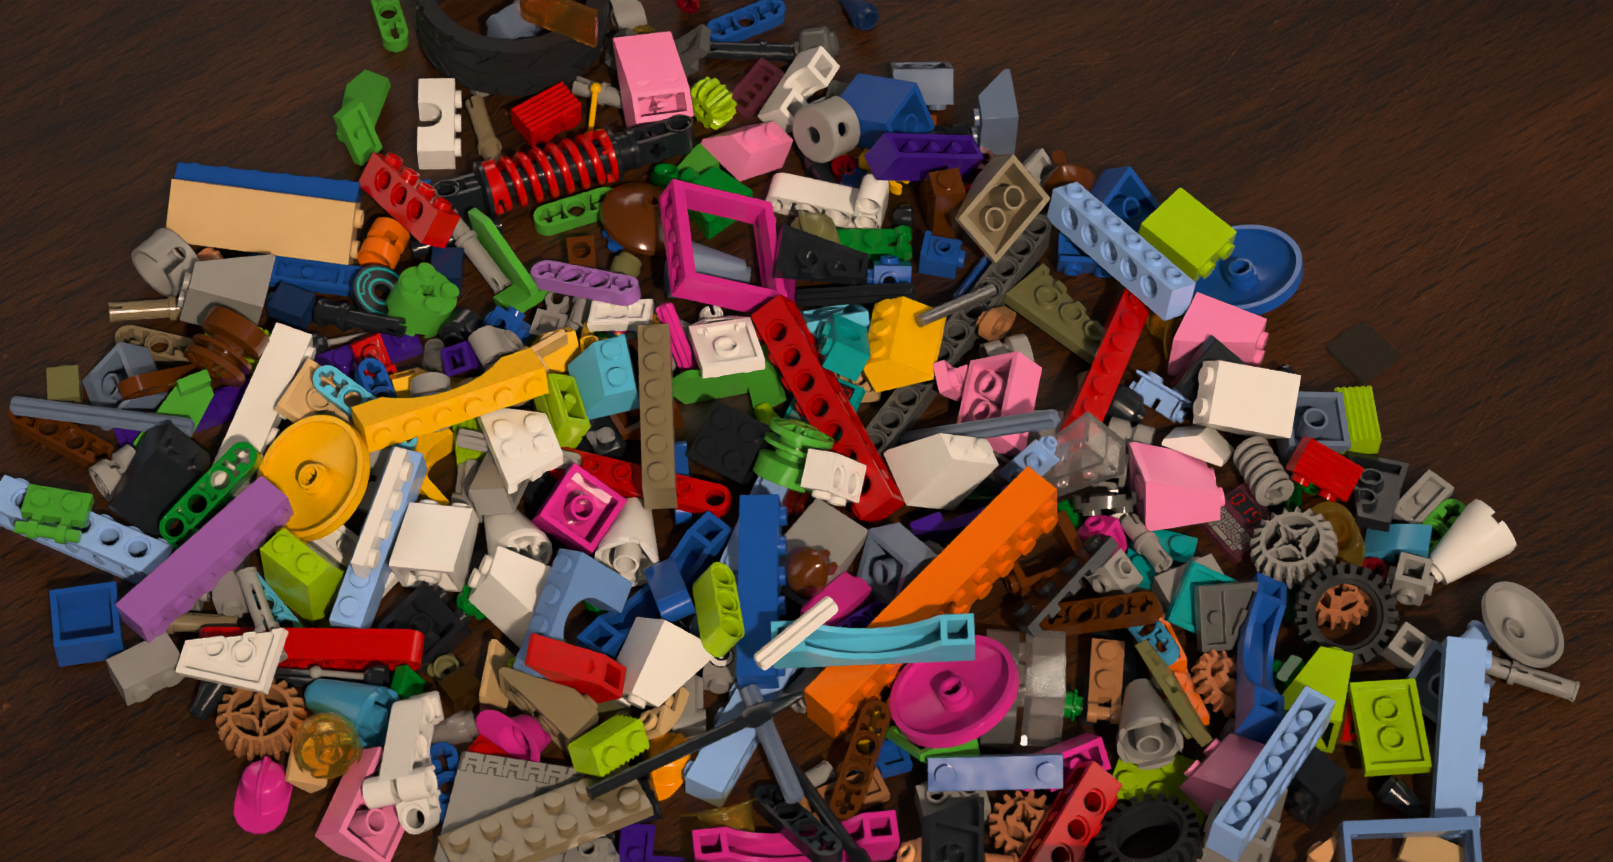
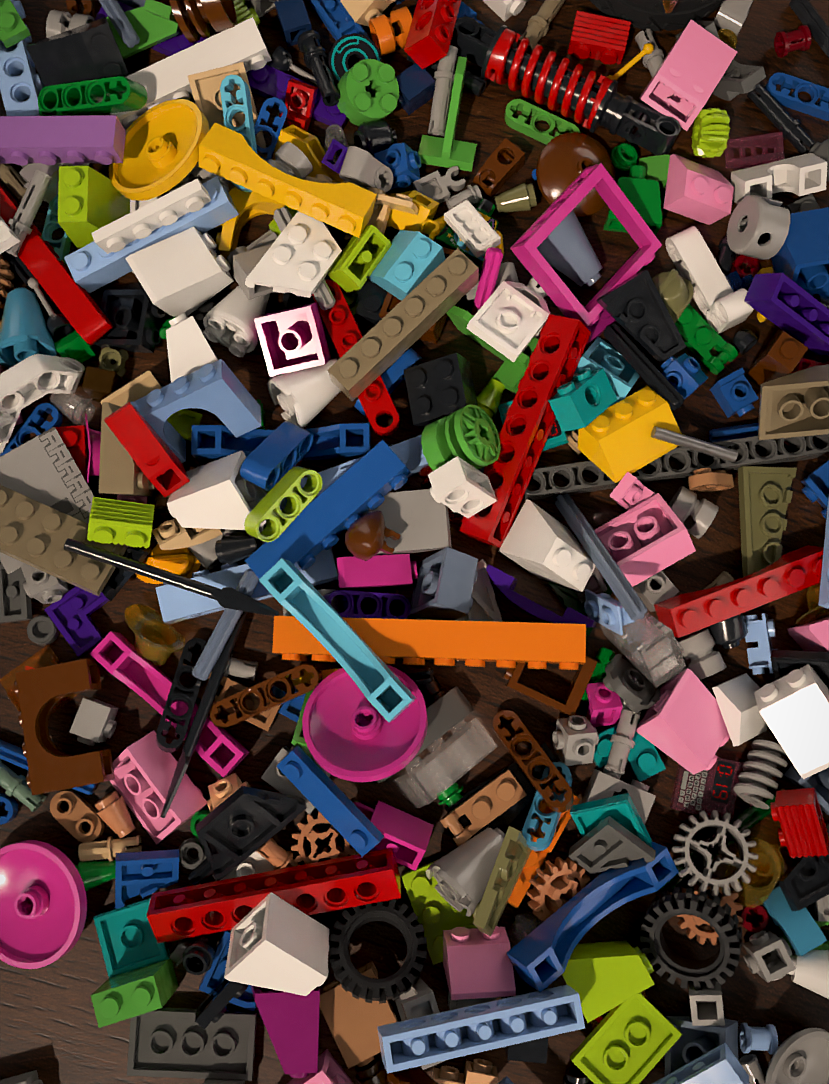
camera: 50 degrees right, 25 degrees up
(618, 288) = (476, 182): medium lavender beam -> none
(714, 687) = (235, 548): none -> black cone
(795, 633) = (283, 586): white axle -> none
(1065, 583) = (516, 714): black wing -> none
(1286, 673) = (607, 931): green tile -> none

